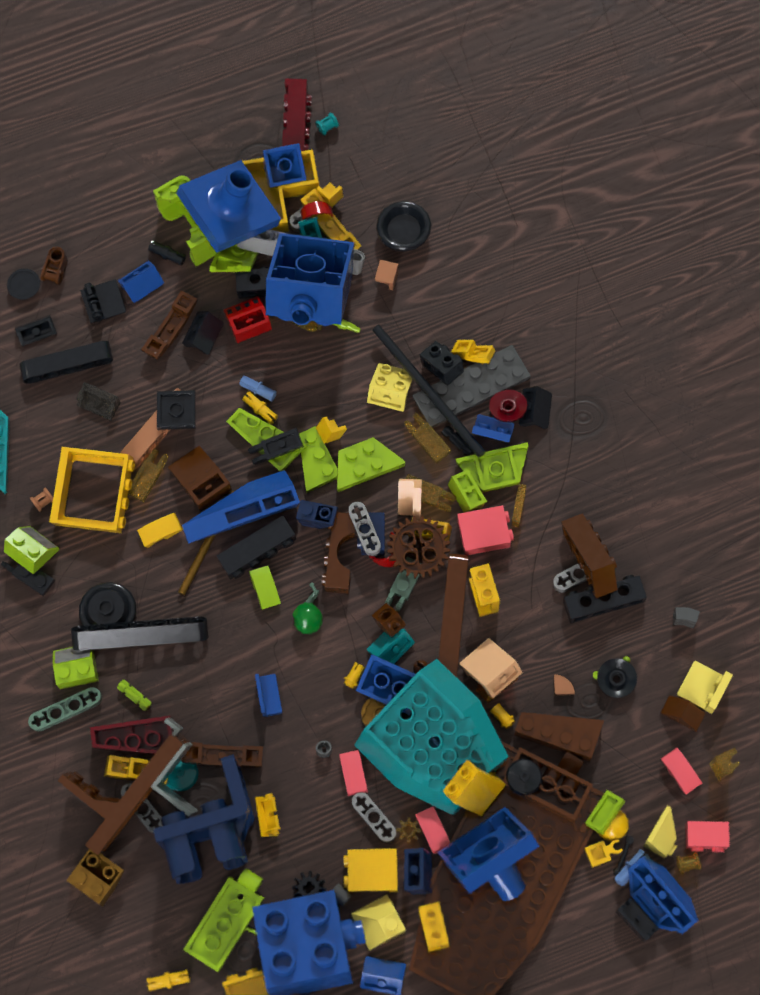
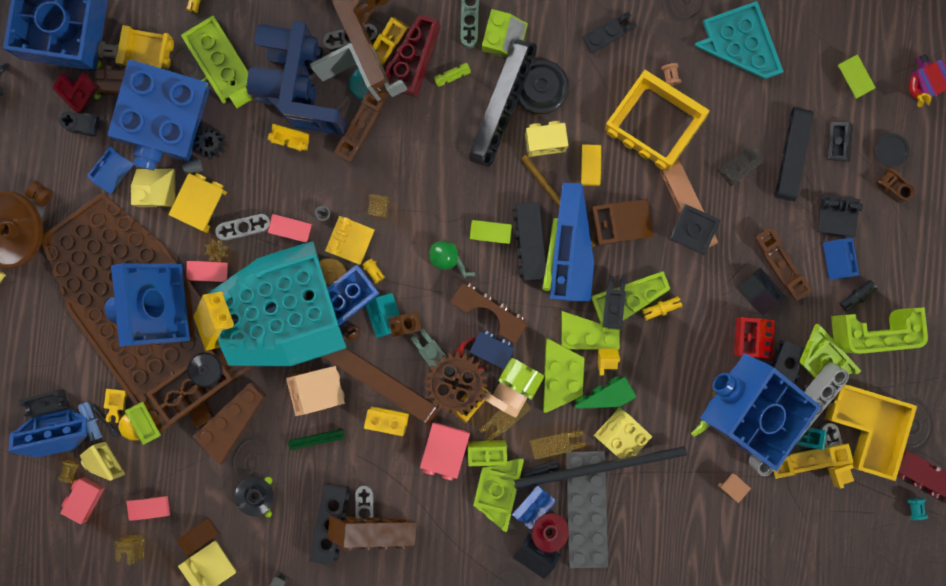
camera: 110 degrees right, 15 degrees up
(29, 548) = (630, 43): lime slope -> none
(147, 476) = (647, 177): clear yellow hinge -> none
(158, 580) = (546, 139): none -> light yellow brick
(228, 206) = (873, 371): blue piece -> none
(258, 388) = (681, 315): medium blue axle -> none
(259, 522) = (549, 265): none -> lime bar
(268, 695) = (394, 188): blue panel -> none
(283, 165) = (891, 445): blue slope -> none
(291, 700) = (378, 205): none -> clear yellow panel
(315, 208) = (831, 453): red helmet -> none
(316, 514) = (532, 308): dark blue slope -> none
(336, 712) = (349, 240): none -> yellow hinge
(358, 411) = (612, 395): none -> green slope
(375, 540) = (510, 349): light grey beam -> none
(384, 493) = (521, 378): none -> lime brick
(403, 226) = (774, 527): black piece -> none
(417, 871) = (175, 240): dark blue brick -> none
(433, 927) = (115, 227): yellow panel -> none
(442, 362) = (621, 493): black brick -> none
(469, 351) = (621, 524): yellow slope -> none
(502, 715) = (272, 380): yellow pin -> none
(518, 505) = (452, 493): clear yellow tile -> none
(535, 650) = (316, 439): none -> dark green axle
(562, 686) = (273, 445): nougat tile -> none

